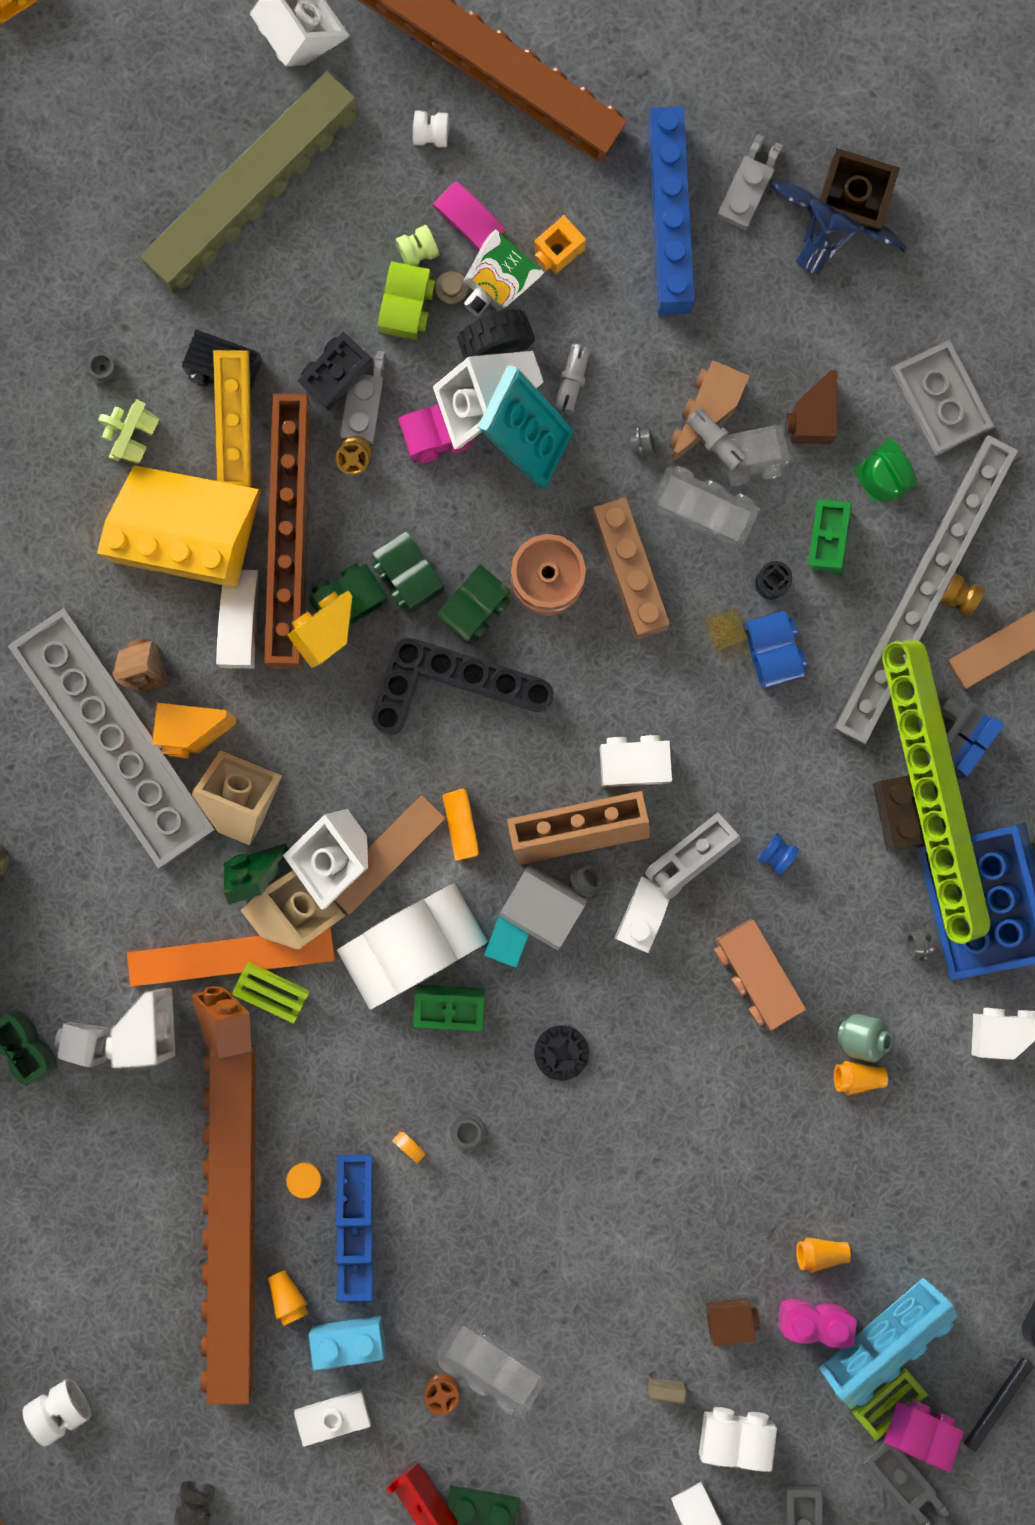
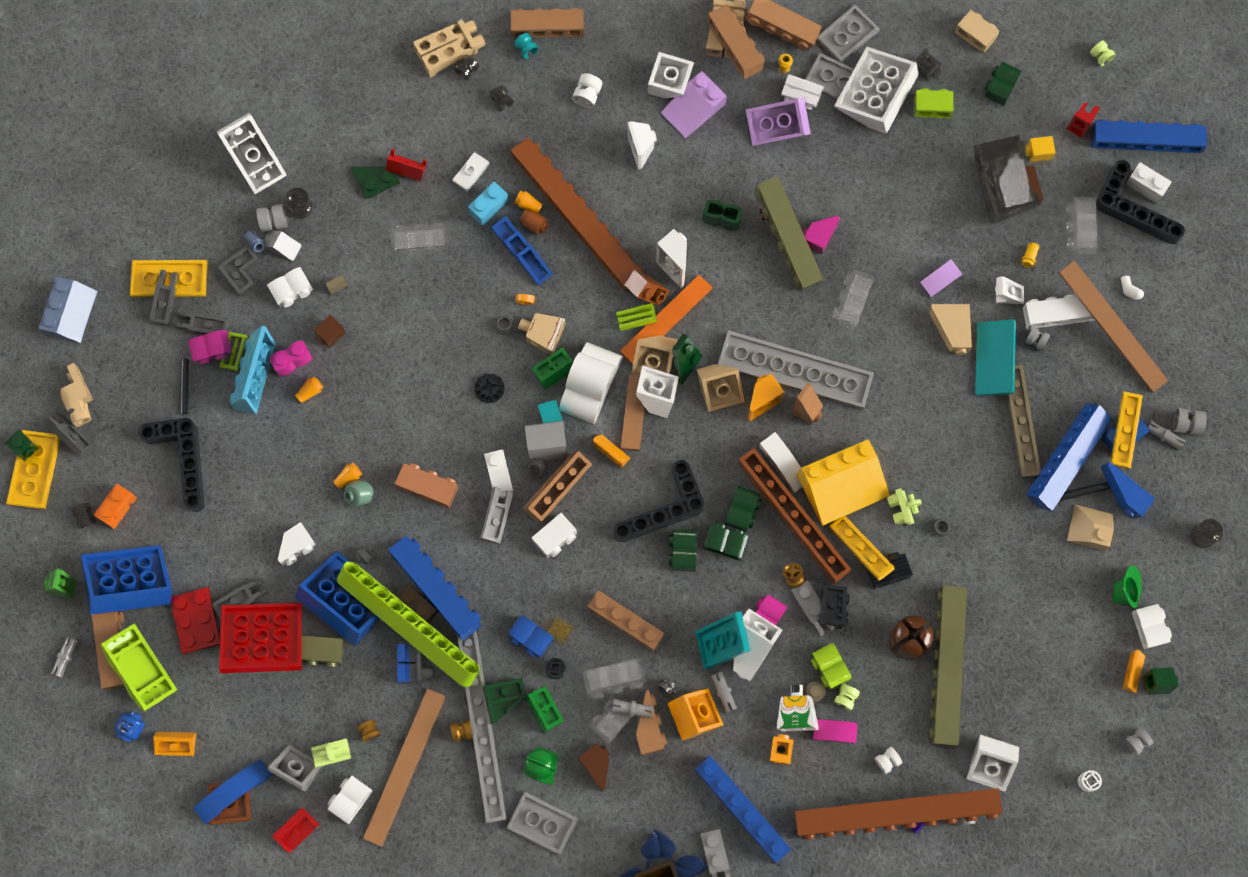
camera: 145 degrees right, 10 degrees down
(44, 1261) = (641, 141): none -> white slope
(82, 1043) = (698, 235): light grey slope -> none
(279, 240) = (915, 647): none -> reddish brown cylinder
(302, 1259) = (533, 222): none -> dark orange brick
(304, 1180) = (559, 254): light orange tile -> none
(324, 632) = (739, 479): yellow slope -> none
(421, 1075) = (543, 331): none -> tan torso
(443, 1401) = (429, 210): dark orange wheel -> none
(497, 334) = (772, 677): black tyre -> none
(548, 595) = (661, 599): nougat wheel -> none
(634, 377) = (695, 714): none -> light orange slope
(778, 854) = (458, 545): blue wheel -> none
(857, 817) = (435, 588): none -> blue brick
(873, 595) = (503, 697): none -> dark green wing

